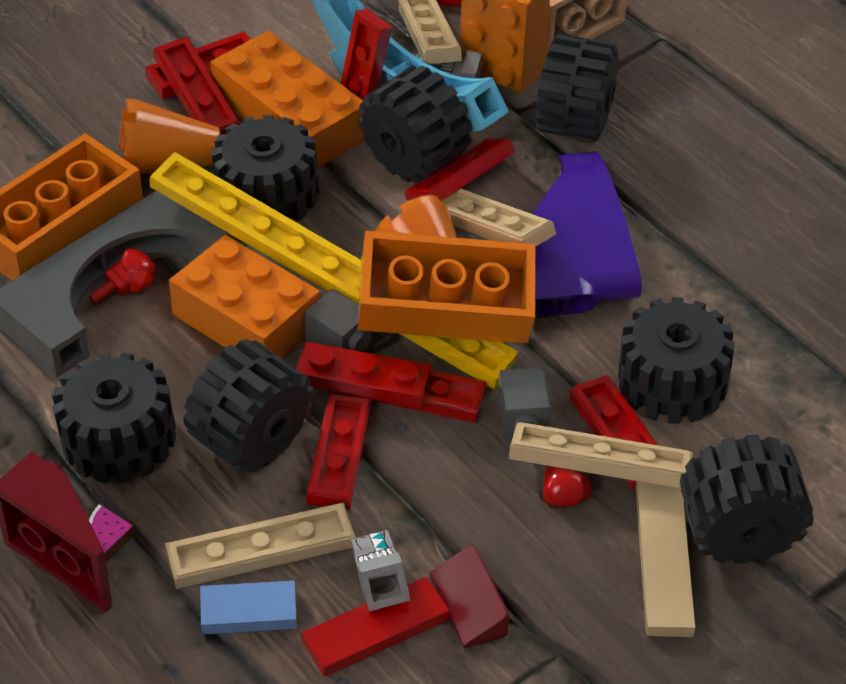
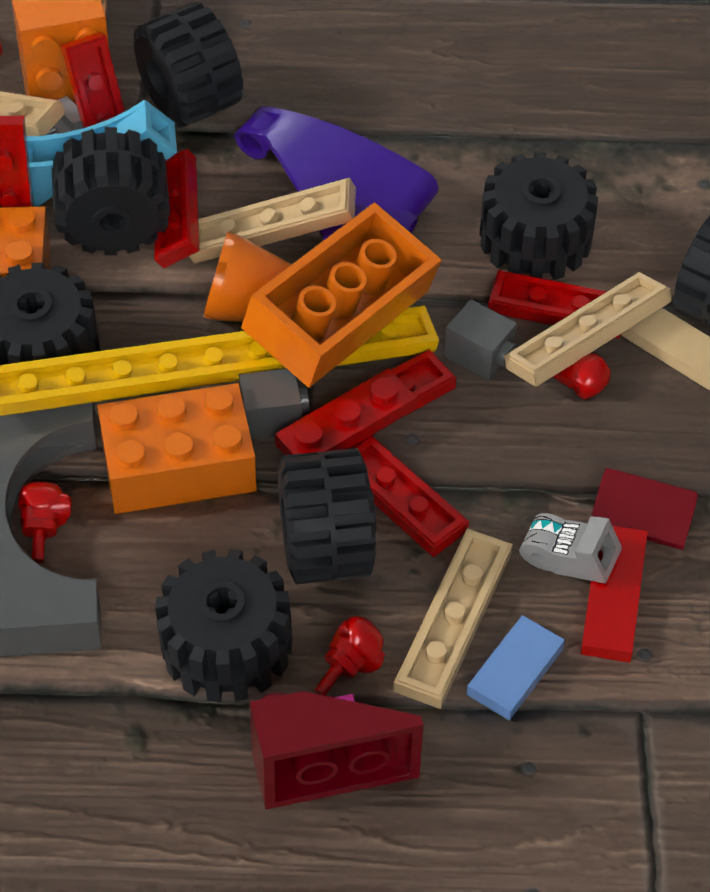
camera: 50 degrees left, 5 degrees up
(171, 501) = (352, 650): none -> red piece
(490, 45) = (93, 79): none -> red tile

